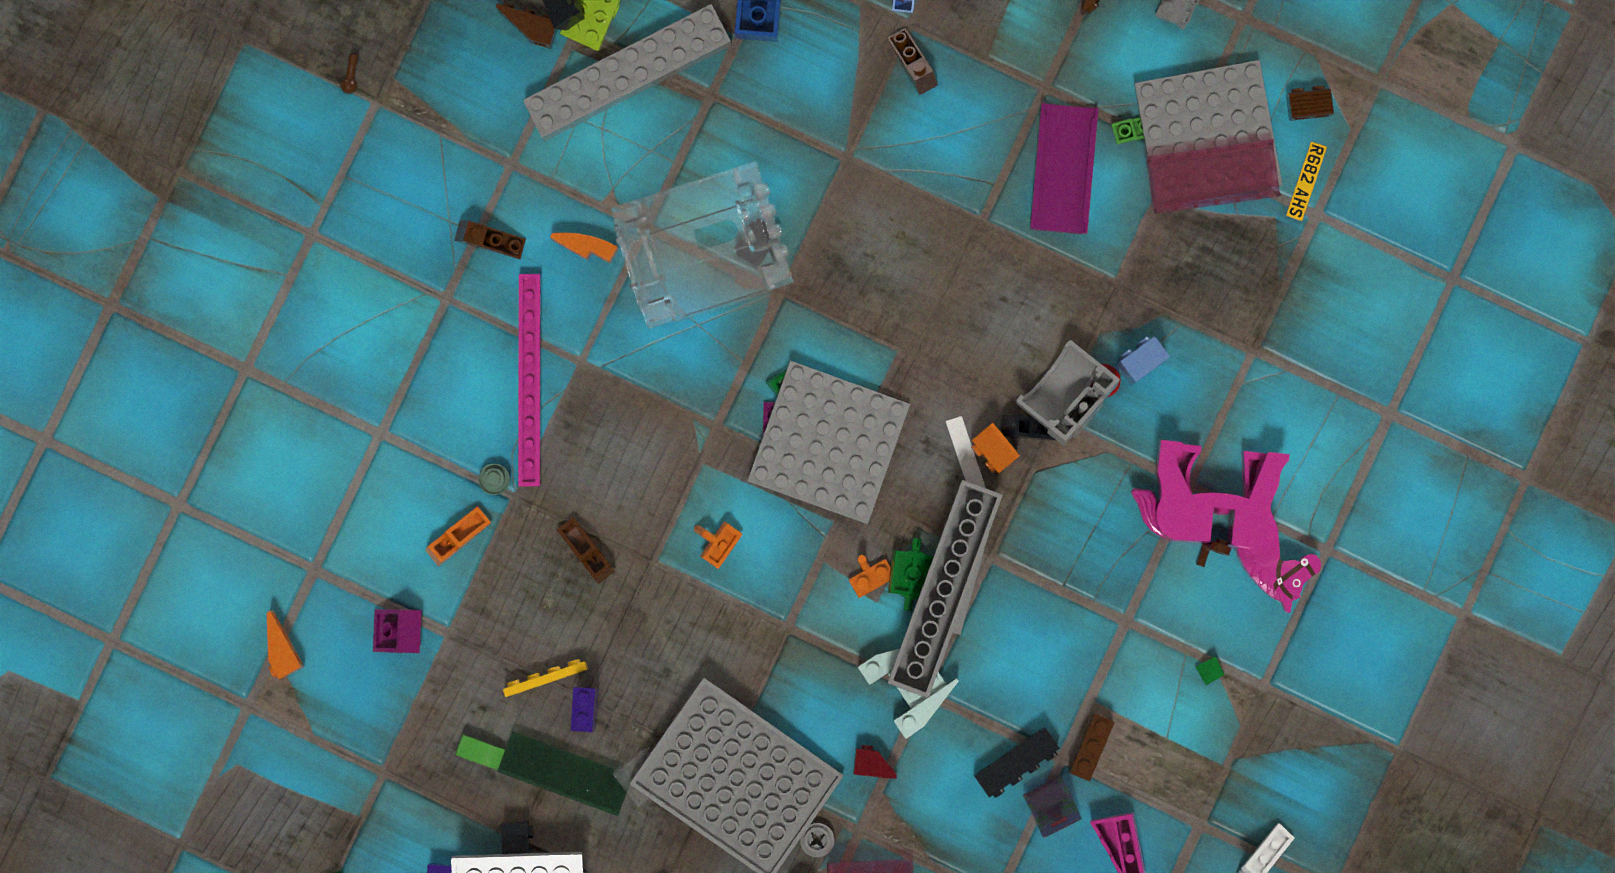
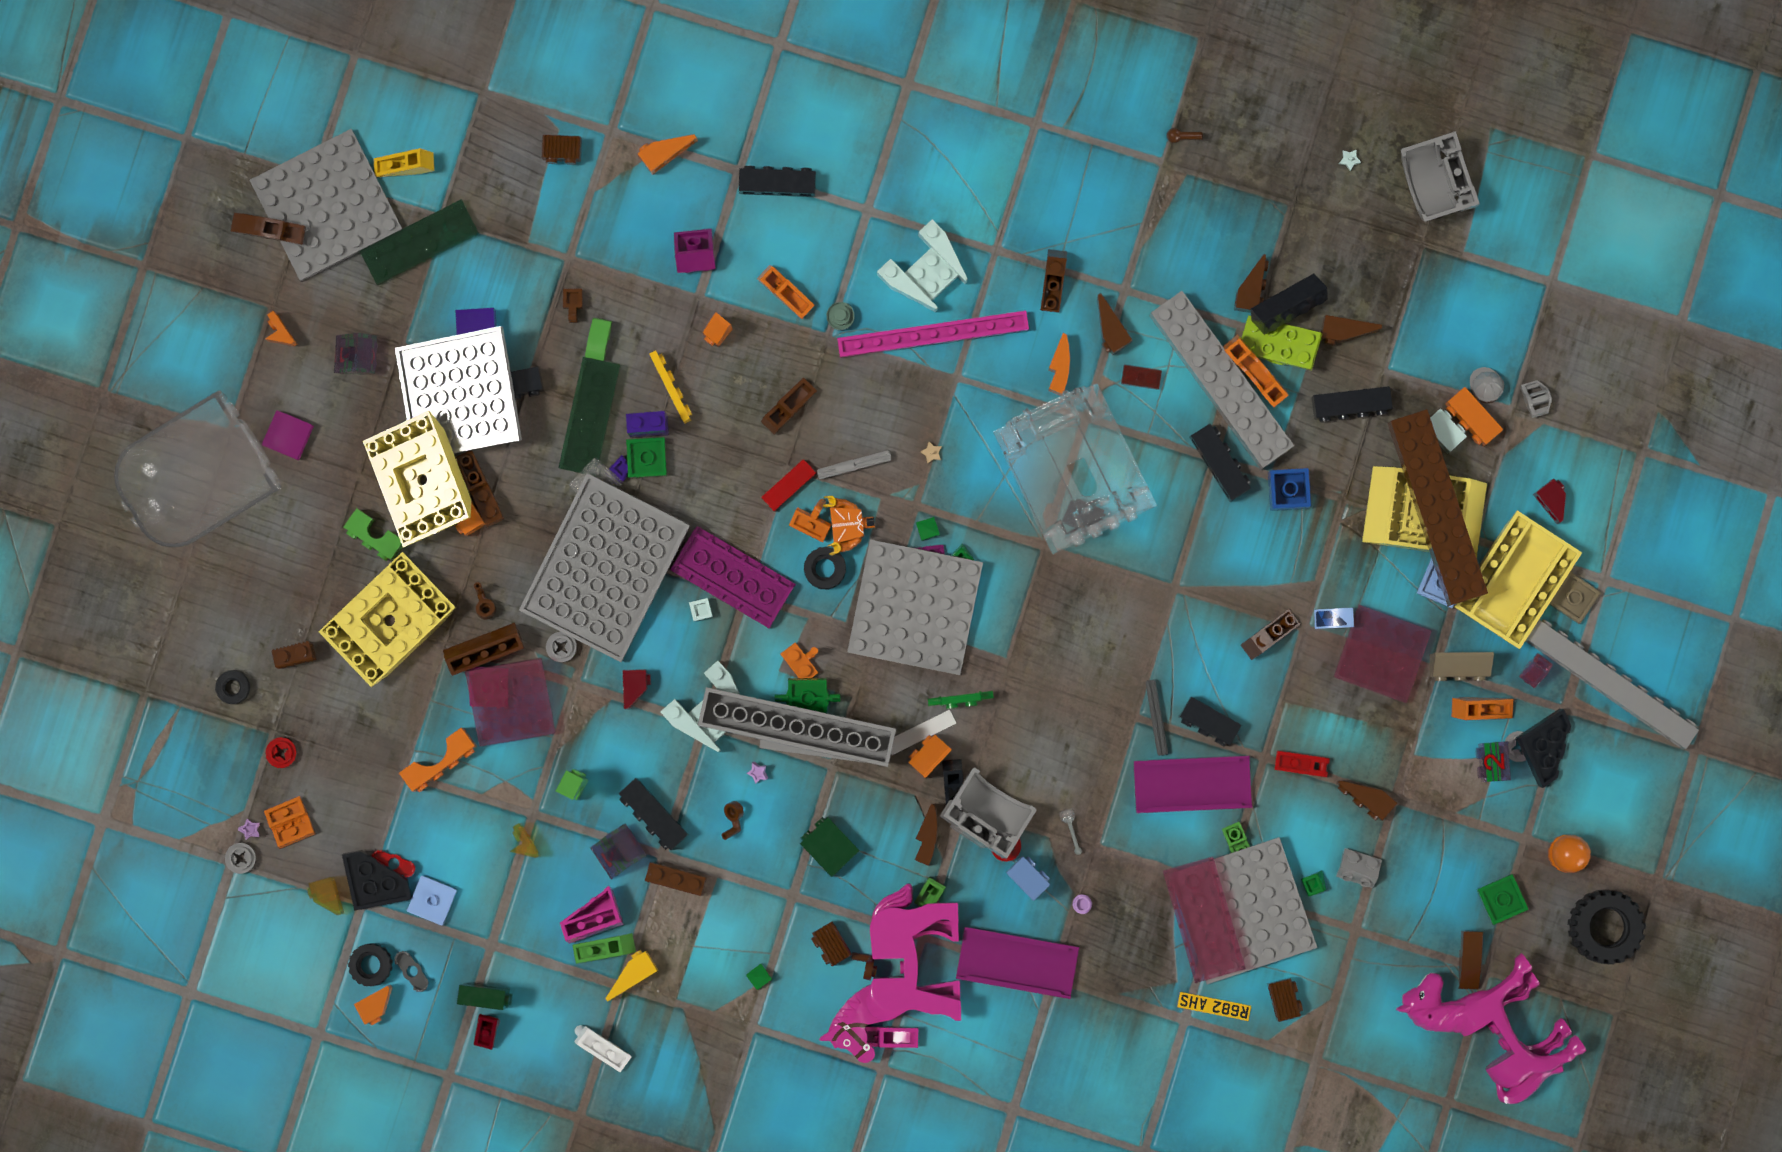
camera: 85 degrees right, 0 degrees up
(260, 763) = (561, 148): none -> reddish brown brick
(334, 528) = (777, 182): none -> black brick
(432, 775) = (572, 300): none -> reddish brown plate
(462, 375) = (930, 273): none -> light aqua wedge
(490, 618) = (717, 330): none -> orange slope
(554, 183) = (1112, 331): none -> reddish brown slope
(610, 160) = (1141, 377): none -> clear red plate
(620, 716) = (646, 457): none -> green plate
(622, 33) = (1255, 370): none -> orange arch
(628, 747) = (620, 468): none -> dark purple tile
(660, 400) = (931, 452): none -> tan piece
(661, 488) = (852, 465): none -> light grey axle
(673, 563) = (788, 485): none -> red tile
(717, 87) = (1220, 462): none -> black brick
(726, 504) = (846, 524): none -> orange torso
(743, 416) = (927, 528): none -> green slope
(759, 524) = (814, 578): none -> black tyre
(766, 638) = (732, 577): none -> magenta ladder
(797, 679) = (700, 609): none -> light aqua plate
(939, 415) = (952, 701): none -> green plate
(973, 846) = (572, 784): none -> bright green arch
(985, 197) = (1156, 717): none -> dark grey axle
(986, 640) = (758, 772): none -> lavender piece
(999, 140) = (1209, 722): none -> black brick
(1027, 673) = (733, 812): none -> reddish brown plate
(1057, 49) = (1300, 764): none -> red plate
(1078, 573) = (829, 846): none -> dark green brick
(1080, 308) = (1068, 816): none -> hinge
(1081, 464) = (927, 835): none -> reddish brown slope
(1143, 470) = (930, 892): none -> bright green slope
(1156, 836) = (604, 948): none -> bright green slope
(1177, 307) = (1082, 904): none -> lavender plate
(1185, 585) = (831, 943): none -> reddish brown brick
(1186, 804) = (635, 971): none -> yellow slope
(1188, 53) = (1314, 883): none -> green slope
(1232, 386) = (1017, 962): none -> magenta ladder
(1295, 532) = (892, 1037): none -> dark pink slope

